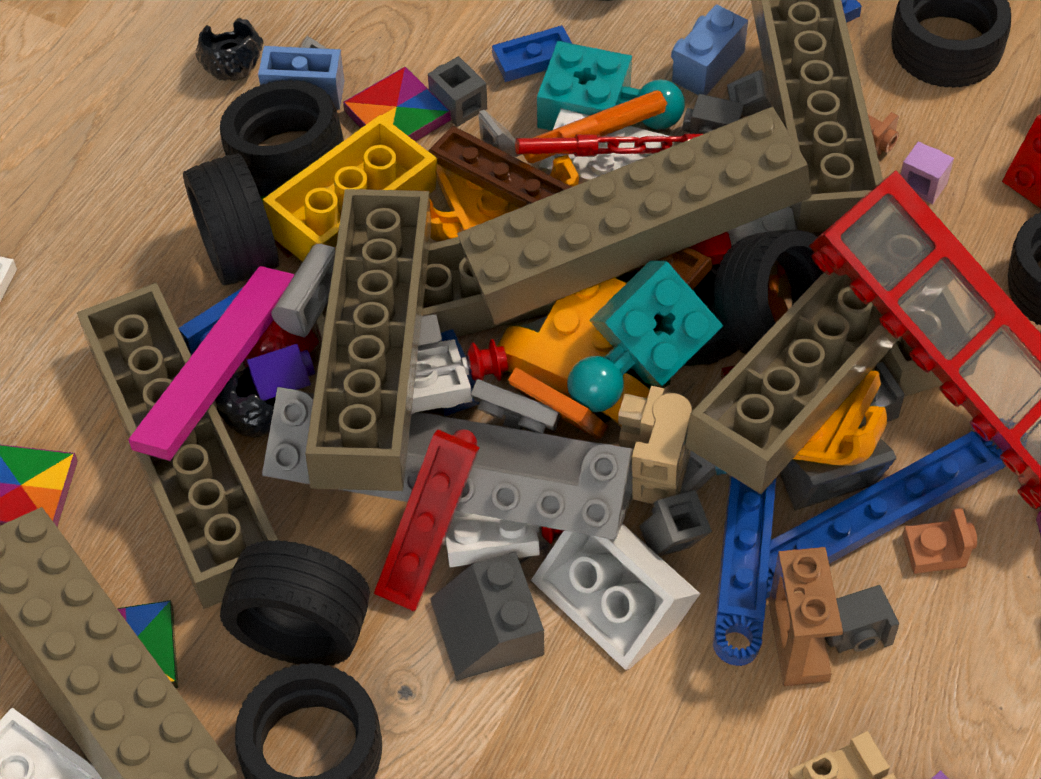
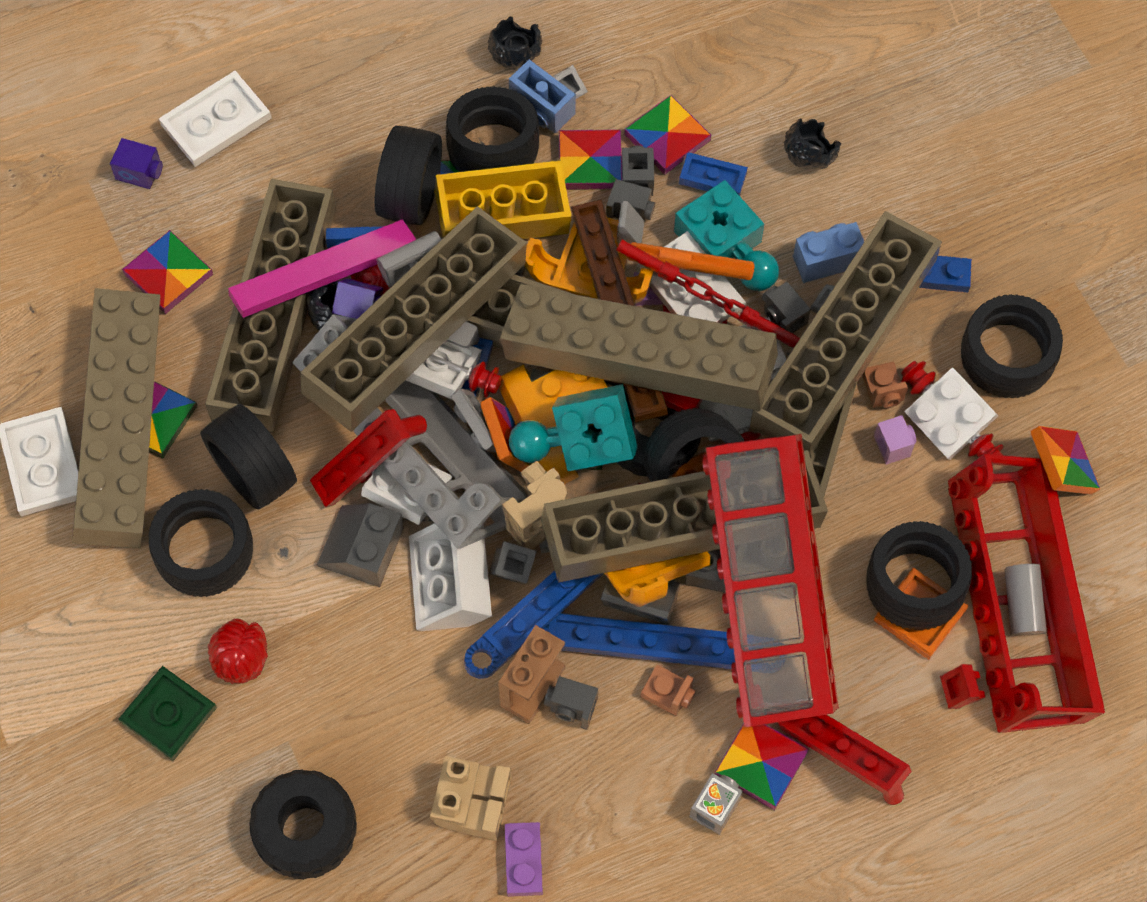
camera: 35 degrees right, 10 degrees up
(453, 35) = (669, 132): none -> tile
(465, 113) = (636, 195): none -> dark grey brick
(955, 116) = (950, 412): none -> white plate

